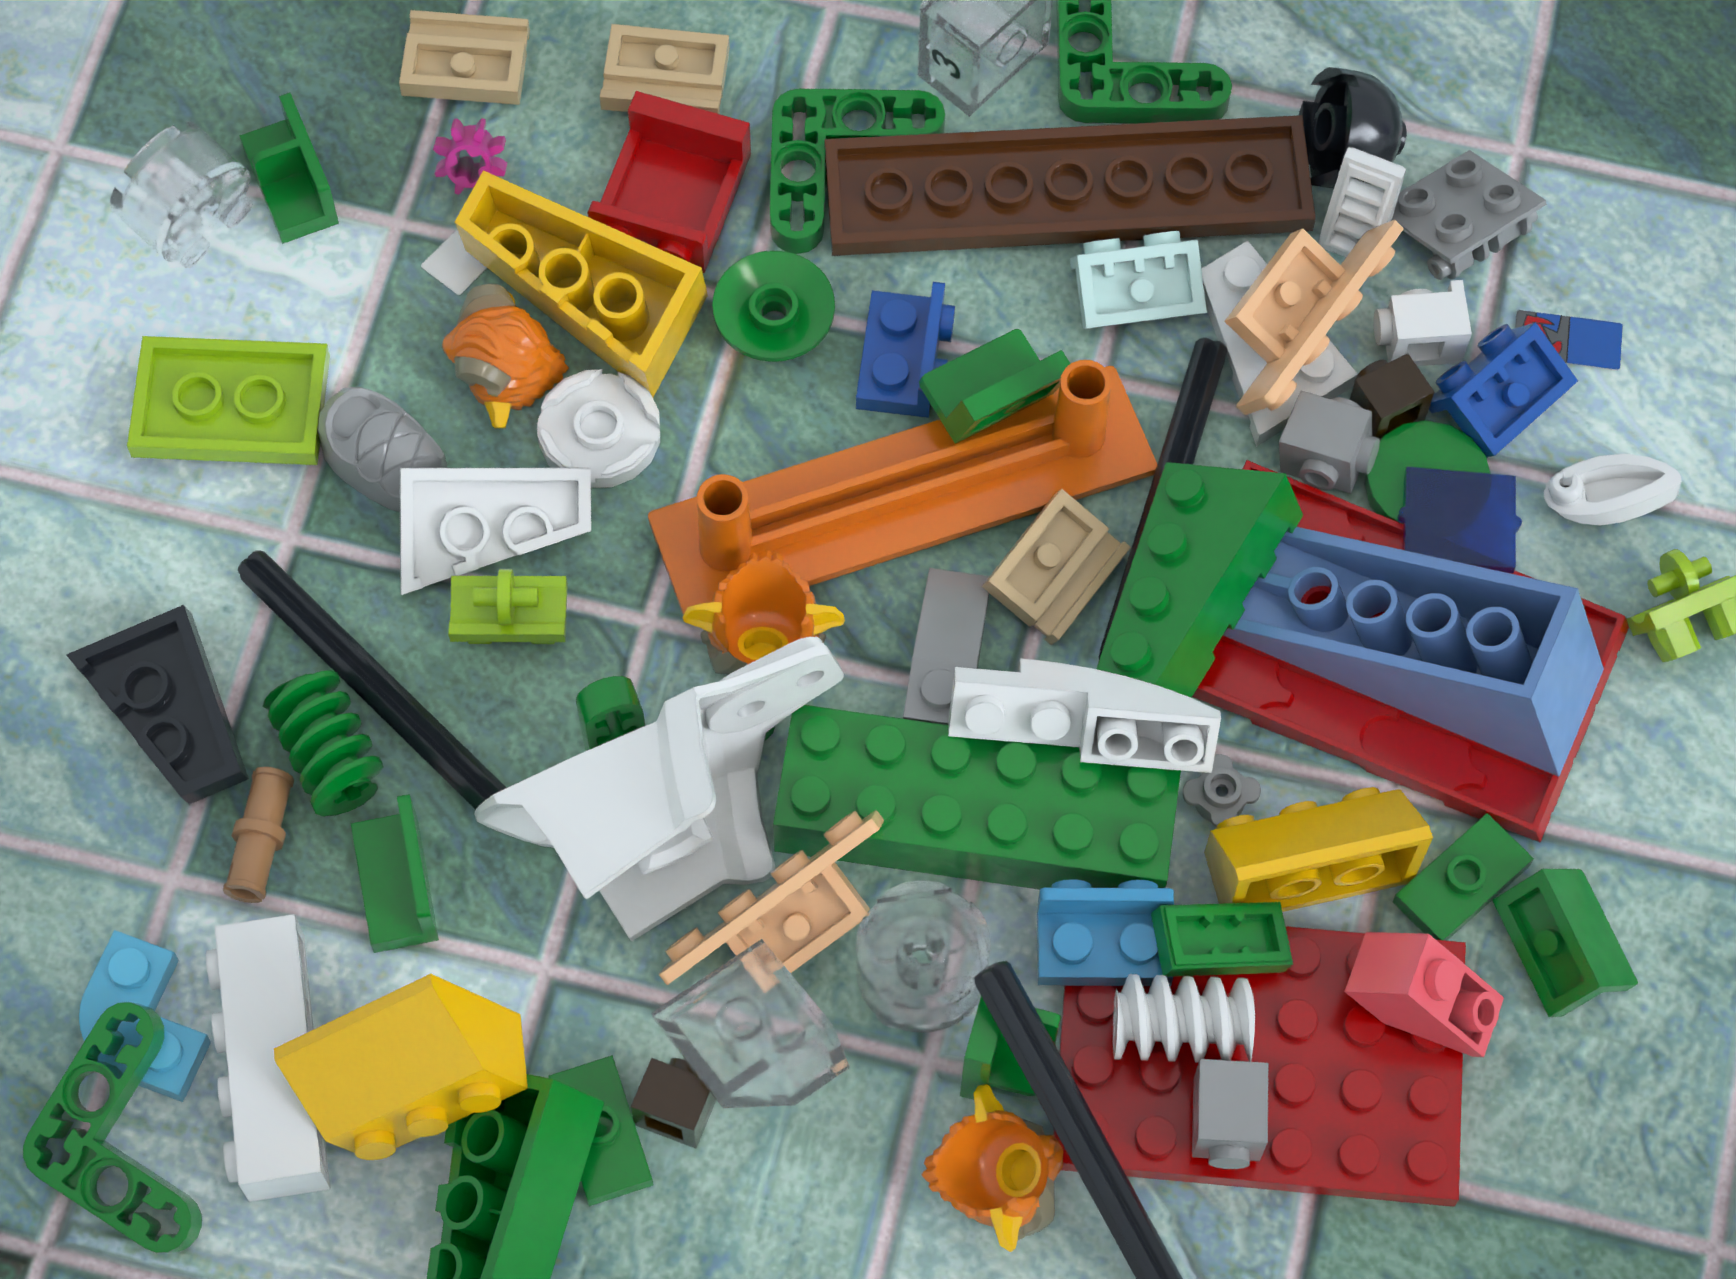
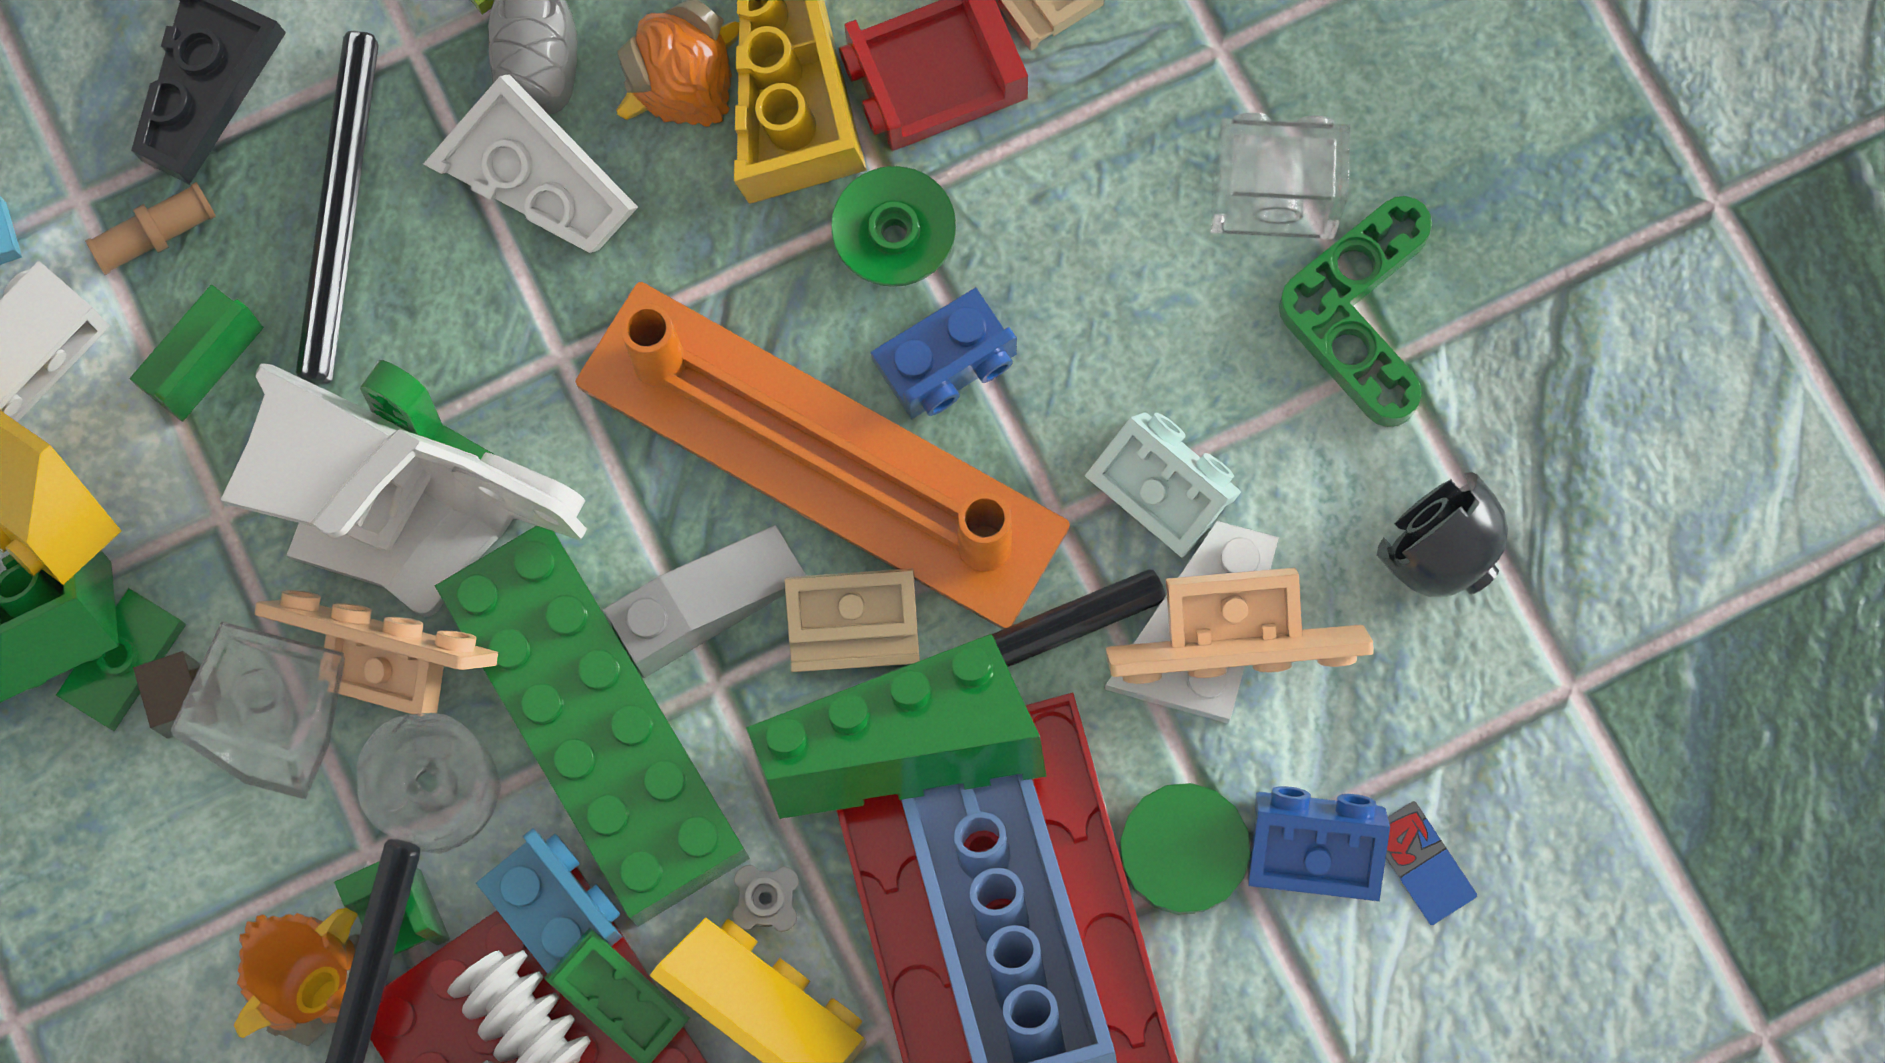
camera: 55 degrees right, 10 degrees up
(323, 743) = (252, 210): green piece -> none
(508, 608) = (466, 249): lime hips -> none
(599, 425) = (684, 187): white tile -> none
(759, 612) = (606, 441): orange hair -> none
(824, 121) = (1091, 137): green beam -> none
(991, 384) = (956, 442): green panel -> none
(1068, 185) = (1207, 361): reddish brown plate -> none
(1086, 708) = (719, 760): white slope -> none
(1328, 442) = (1141, 744): light grey brick -> none
(1358, 205) = (1379, 600): white slope -> none
(1393, 393) = (1227, 760): dark brown plate -> none
(1425, 325) = (1319, 737): white brick -> none
(1461, 517) = (1161, 902): clear blue piece -> none
(1465, 213) = (1460, 685): light grey hinge -> none
(1612, 489) = (1301, 1004): white arm -> none

